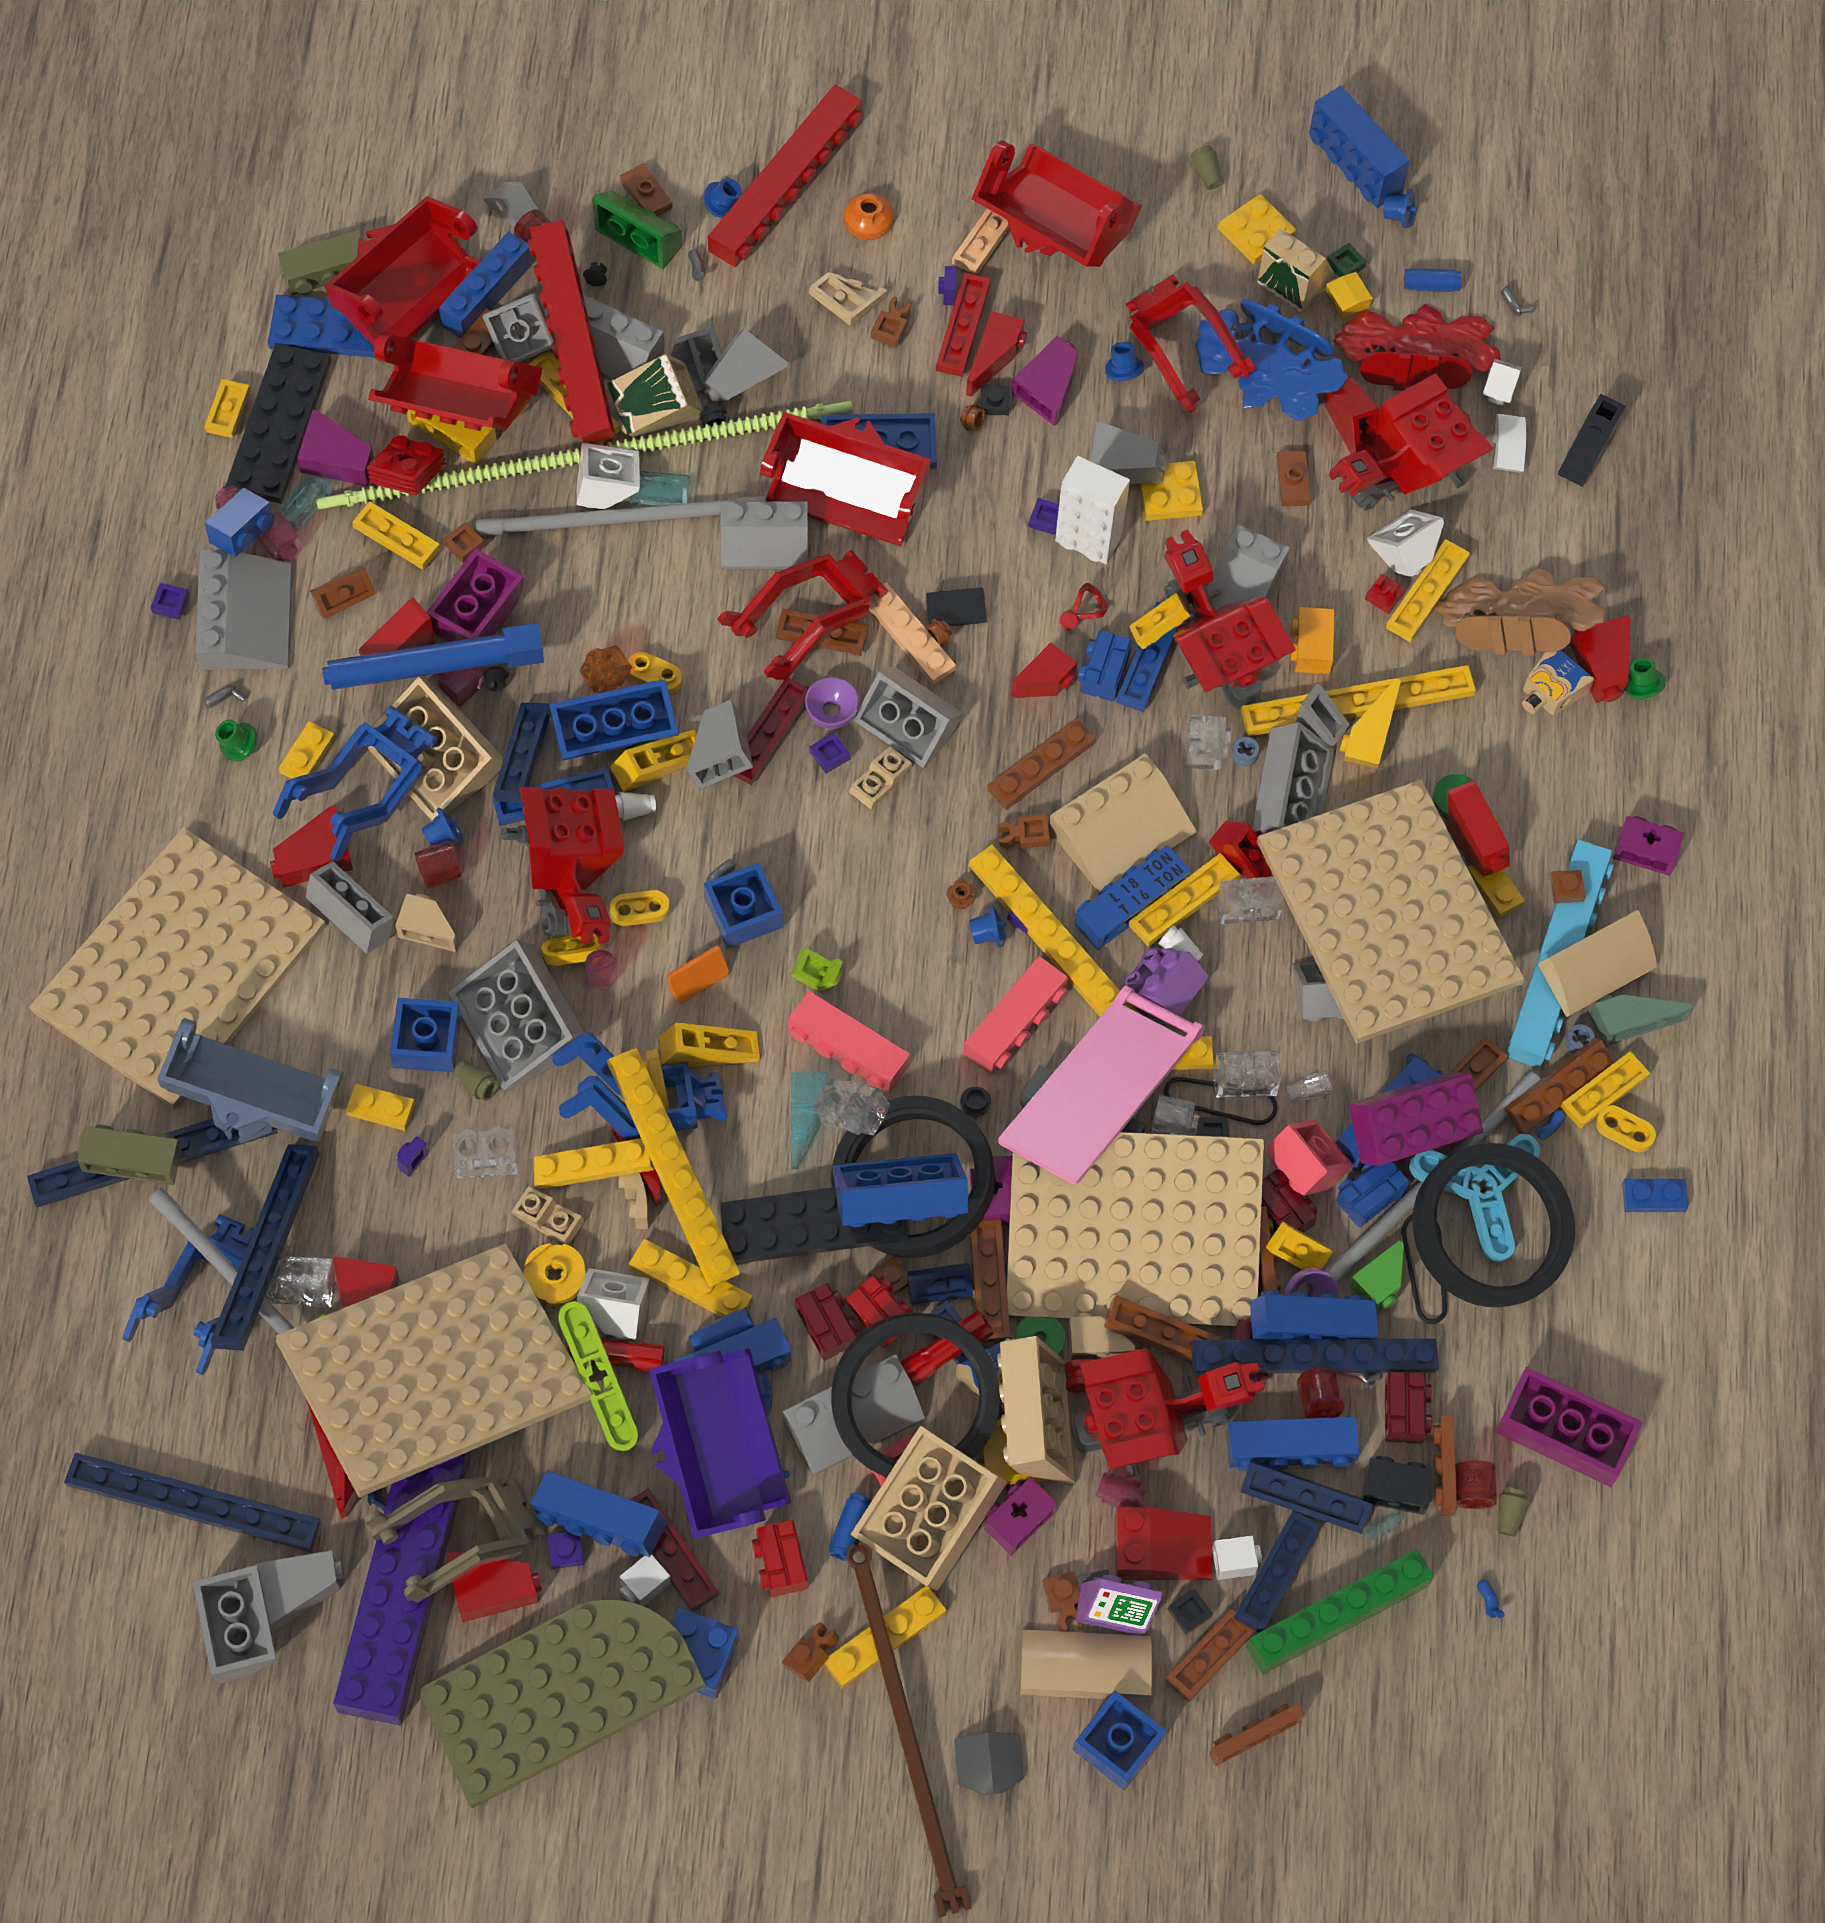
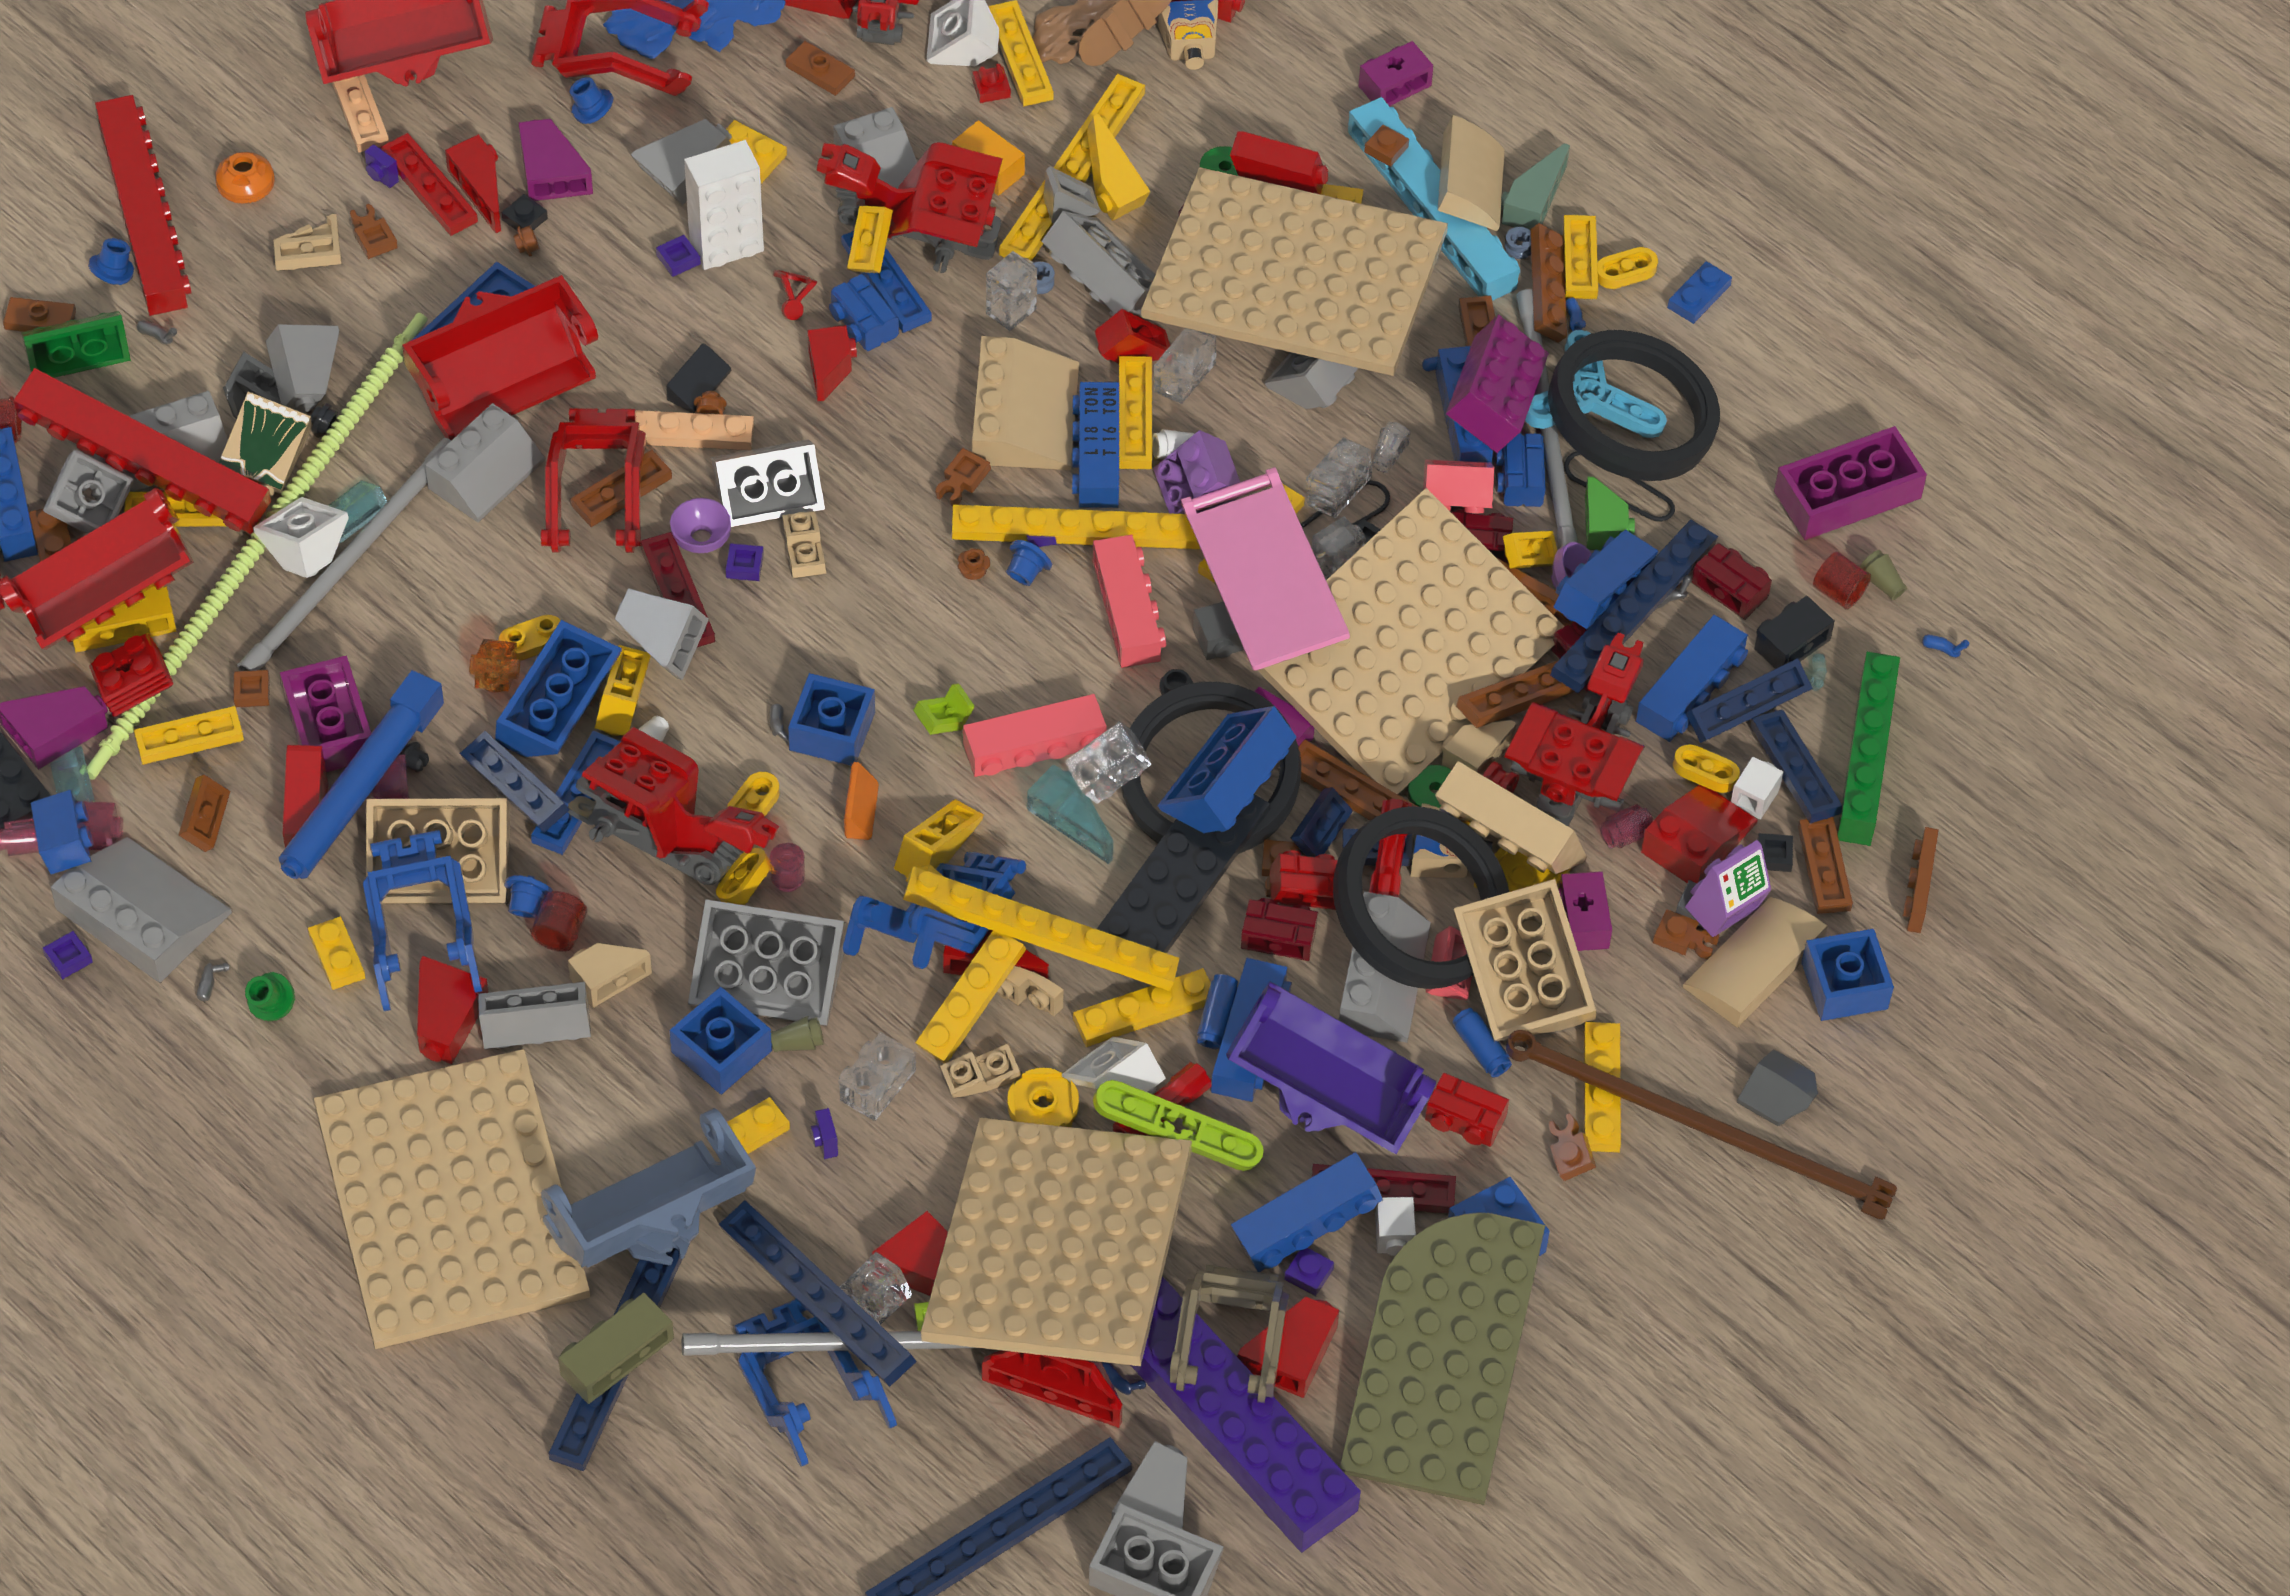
camera: 50 degrees left, 10 degrees down
(1041, 764) = (907, 424): dark orange plate -> none
(1221, 1511) = (1706, 768): none -> yellow plate
(1320, 1393) = (1670, 625): clear red piece -> none
(1445, 1465) = (1800, 583): dark orange plate -> none

